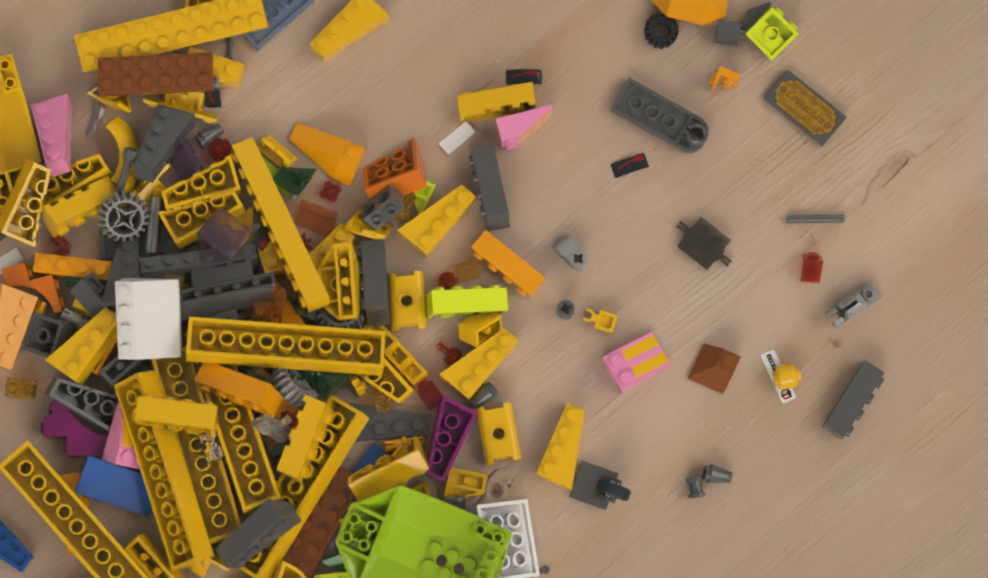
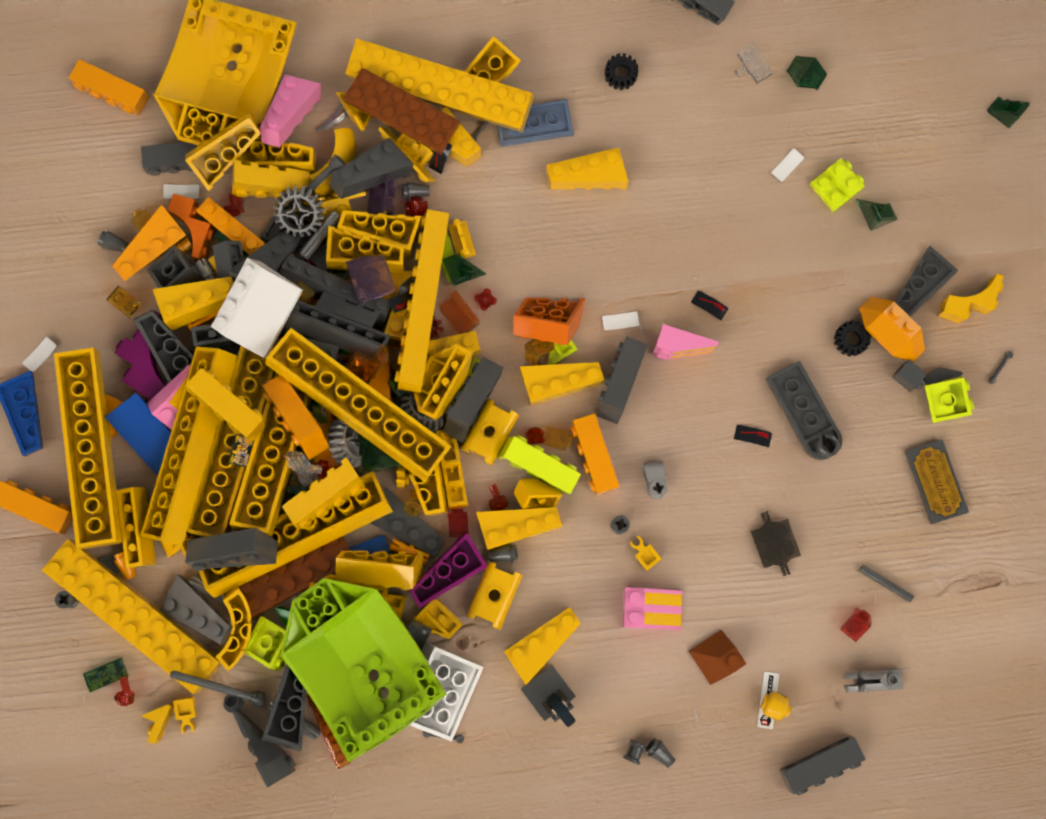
camera: 30 degrees right, 0 degrees up
(332, 154) = (507, 270): light orange wedge -> none
(359, 226) = (497, 347): yellow wing -> none
(383, 207) = (519, 339): dark grey brick -> none
(496, 102) = (672, 311): yellow wedge -> none
(727, 78) = (884, 413): light orange bracket -> none

